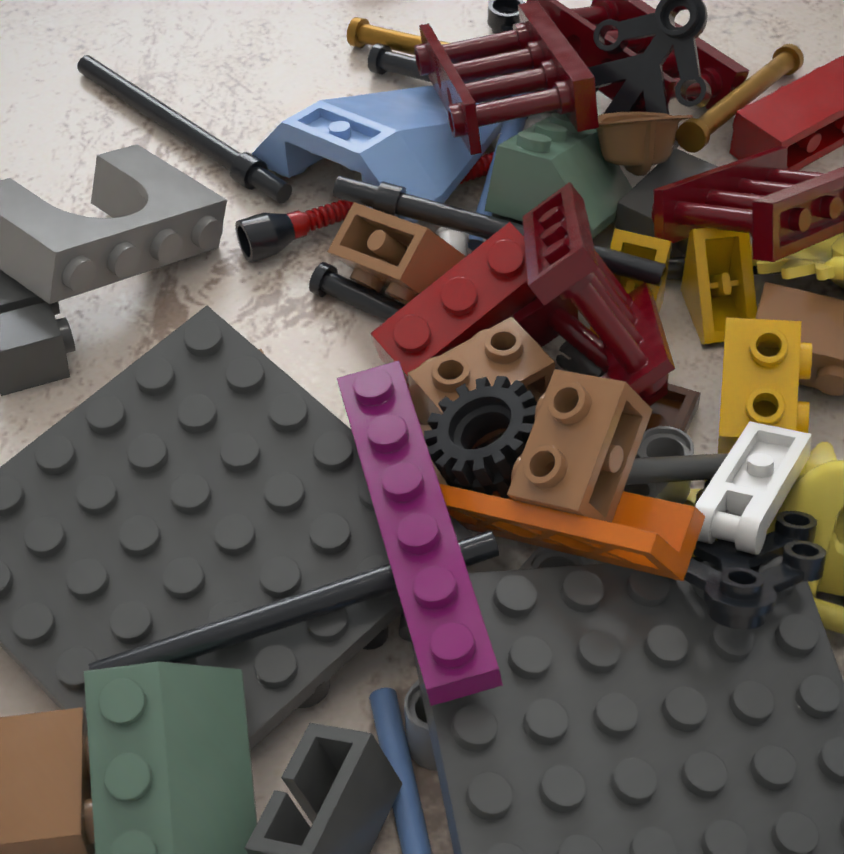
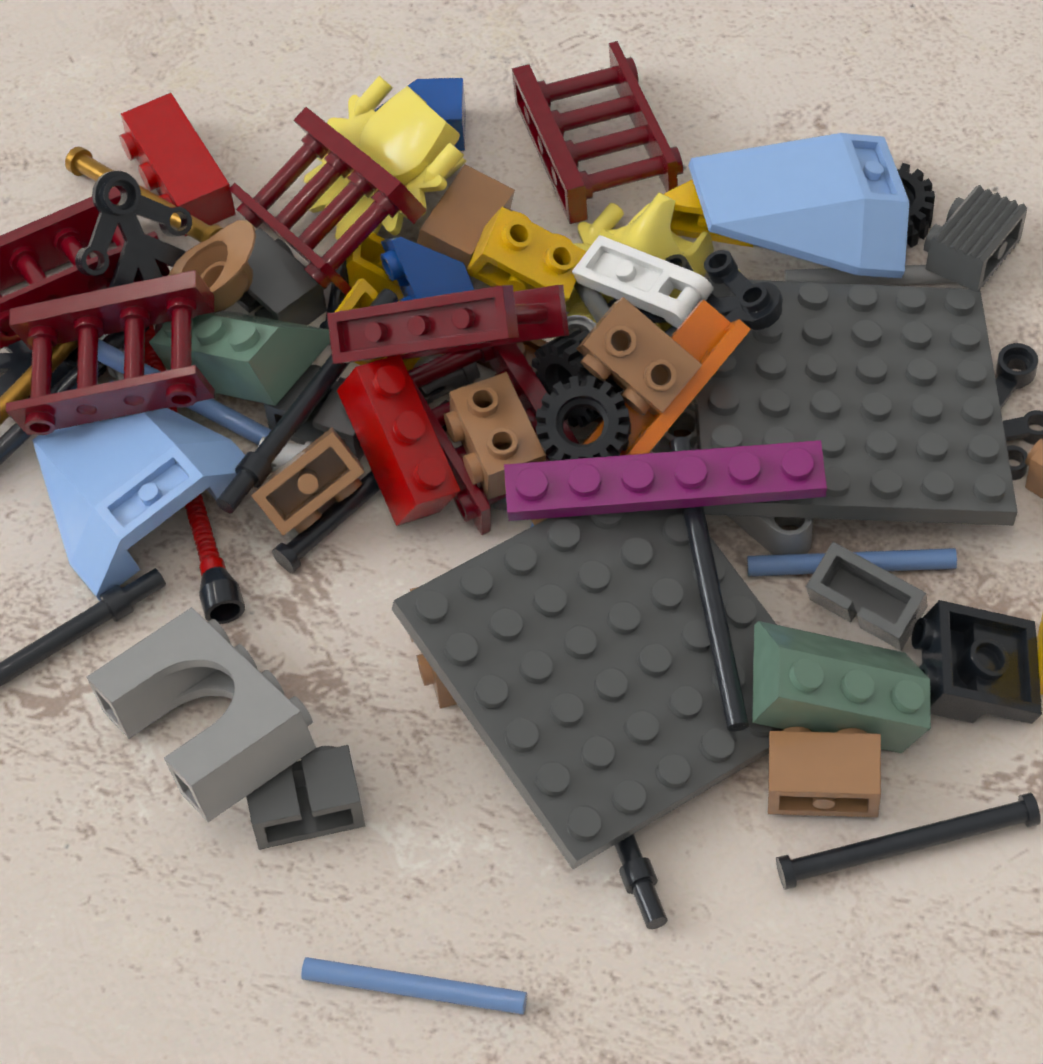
camera: 75 degrees left, 10 degrees up
(698, 310) = (422, 270): none -> blue slope

